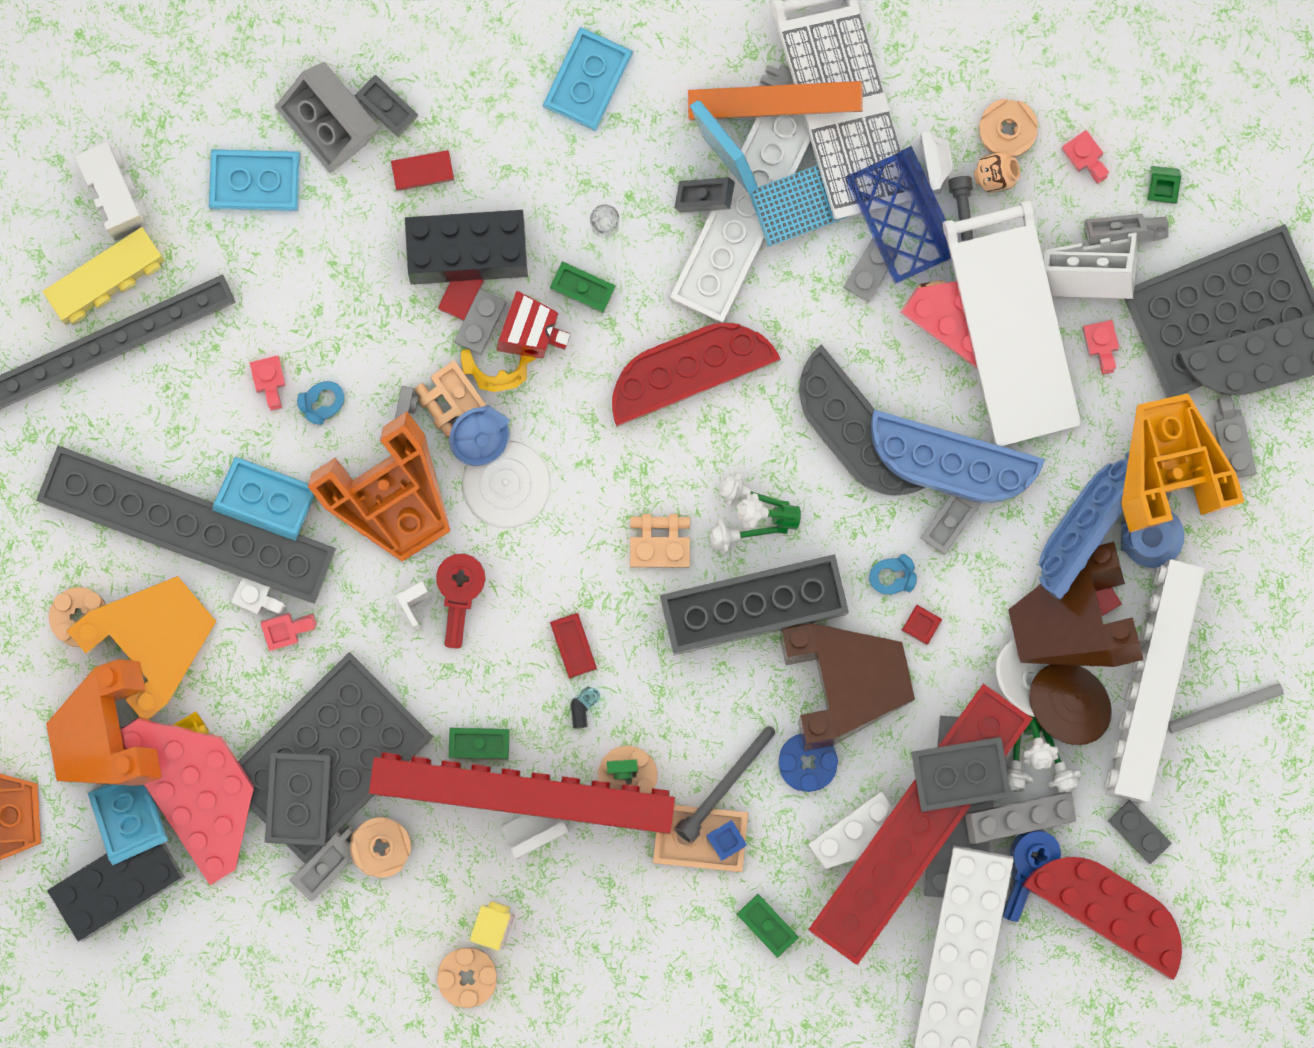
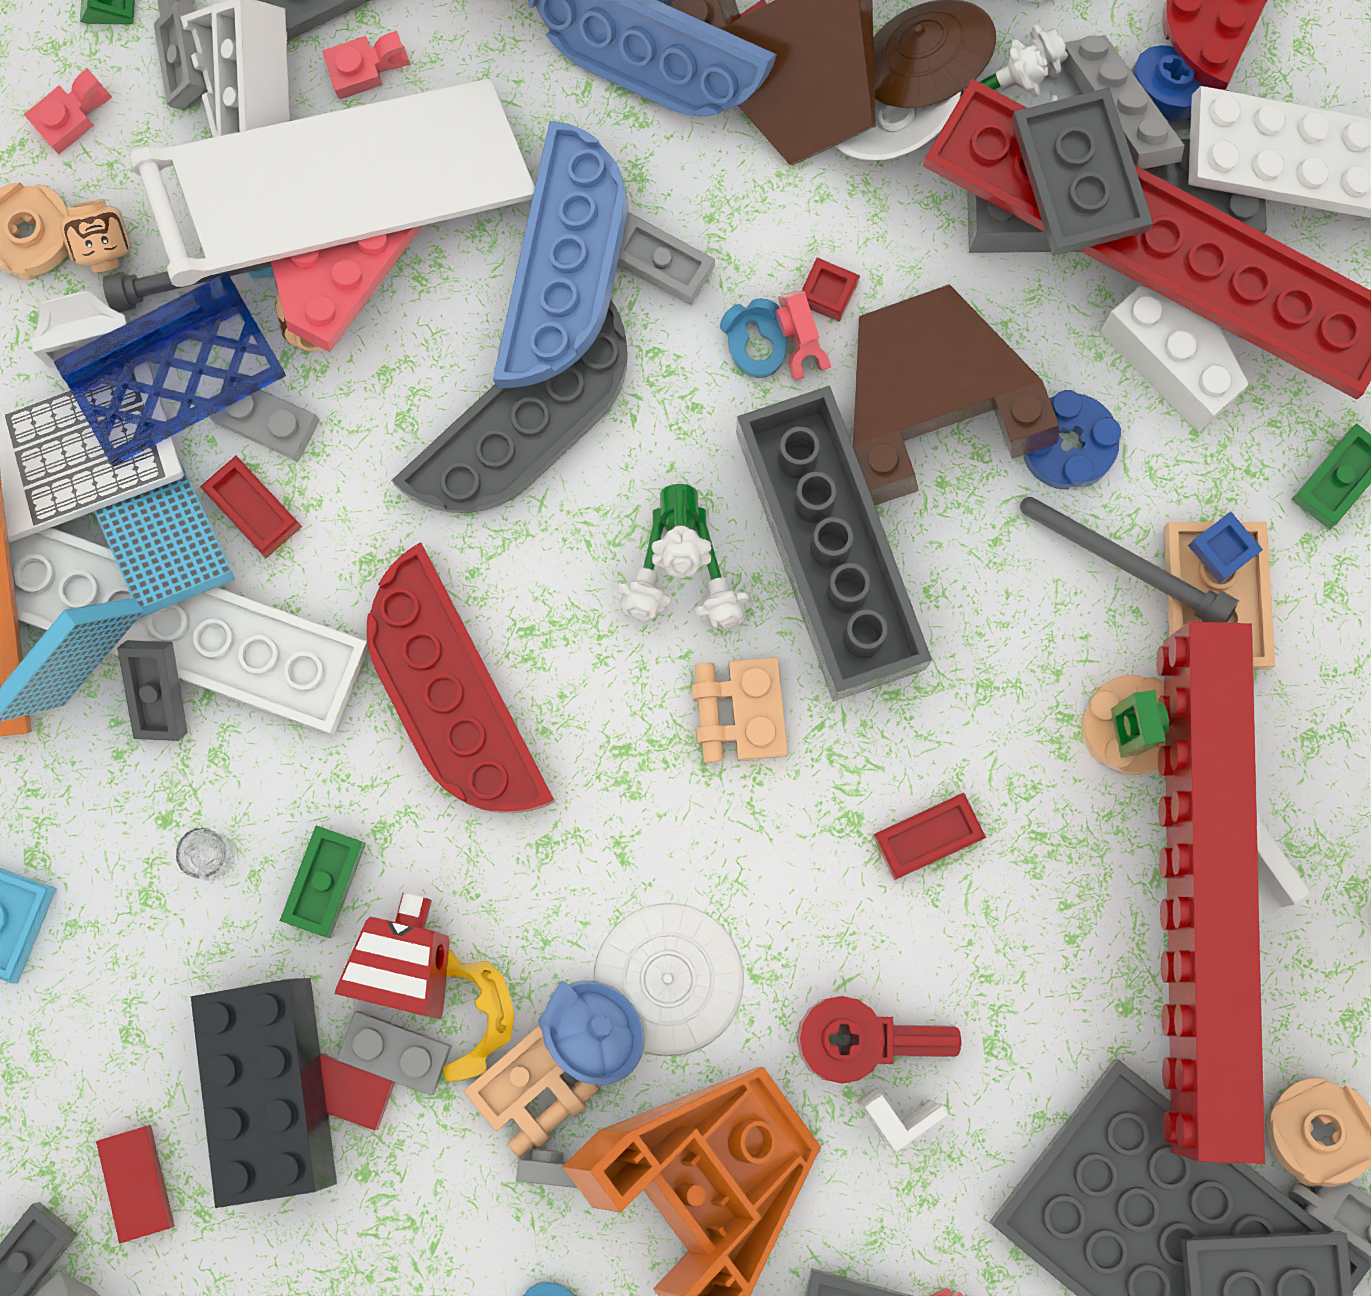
camera: 90 degrees left, 5 degrees down
(479, 743) = (1116, 978): green plate -> none
(581, 704) = (1026, 813): arm -> none
(816, 257) = (251, 506): none -> red tile
(899, 599) = (797, 321): none -> coral plate

